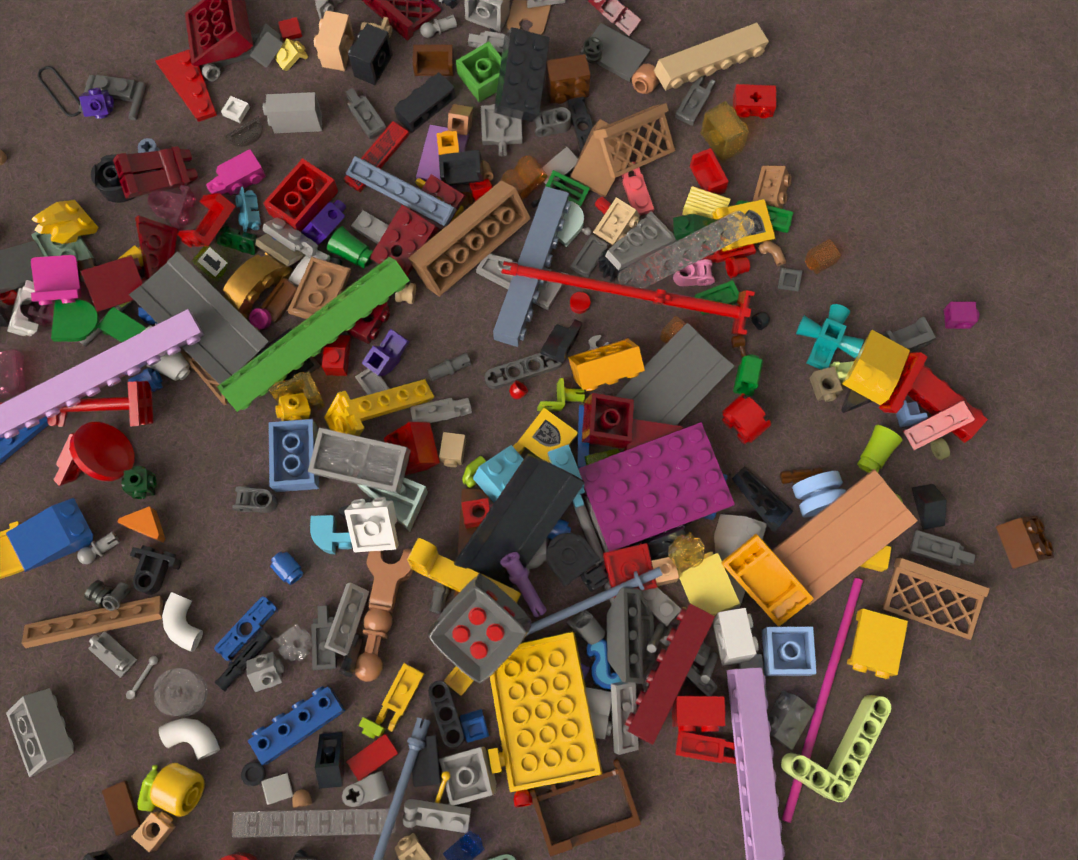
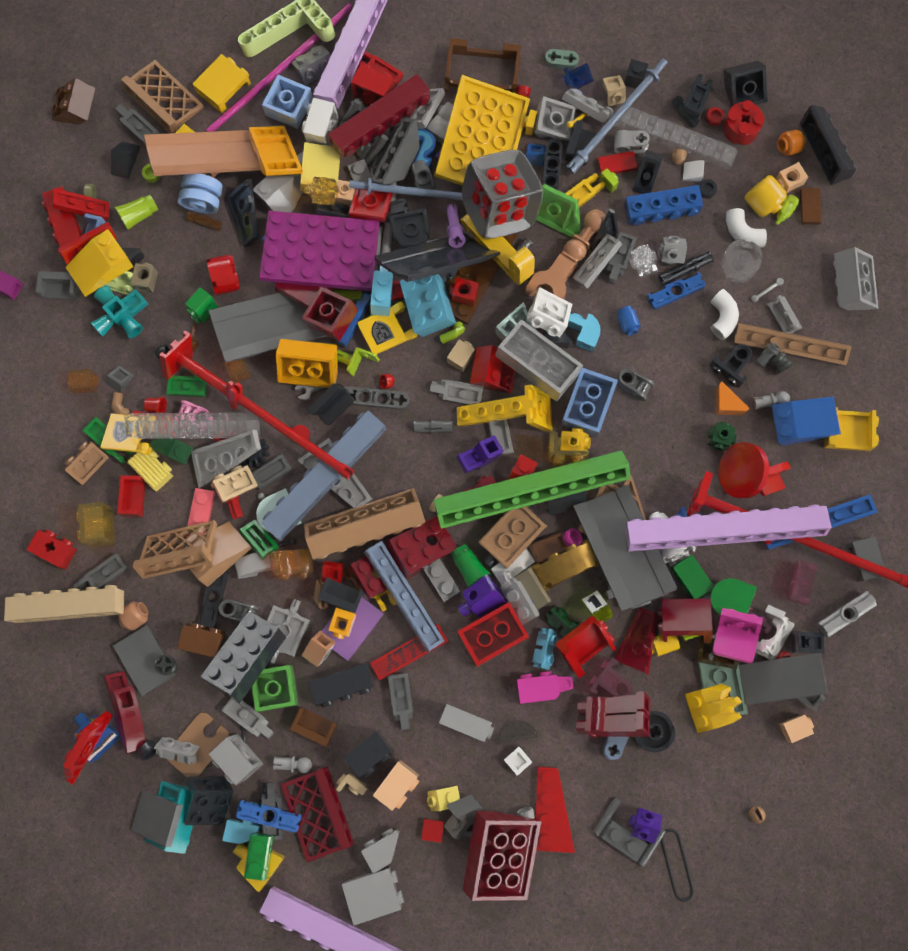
camera: 150 degrees left, 5 degrees up
(414, 657) = (559, 211): none -> bright green wing

